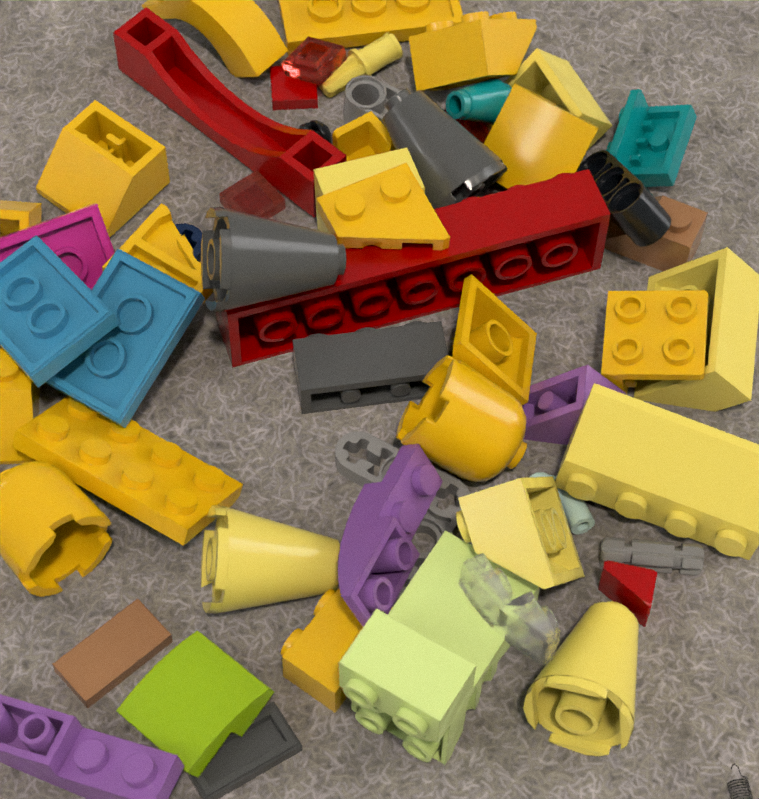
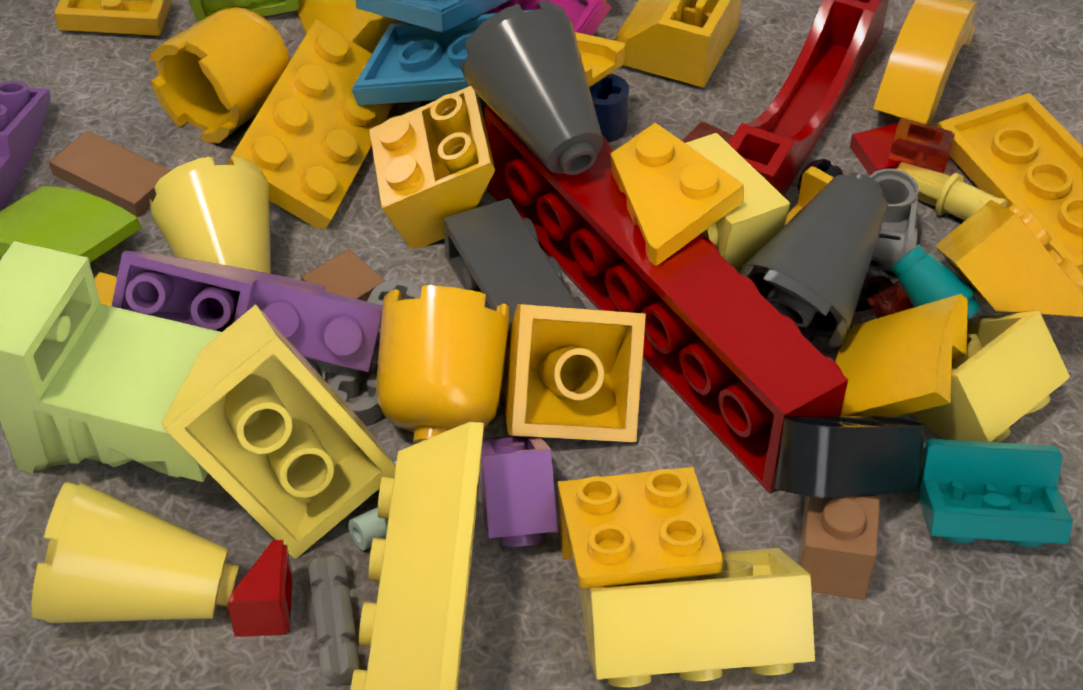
camera: 75 degrees right, 10 degrees down
(235, 378) = (432, 165): none -> yellow slope
(318, 490) = (345, 276): none -> medium nougat tile
(520, 620) = (108, 410): clear slope -> none

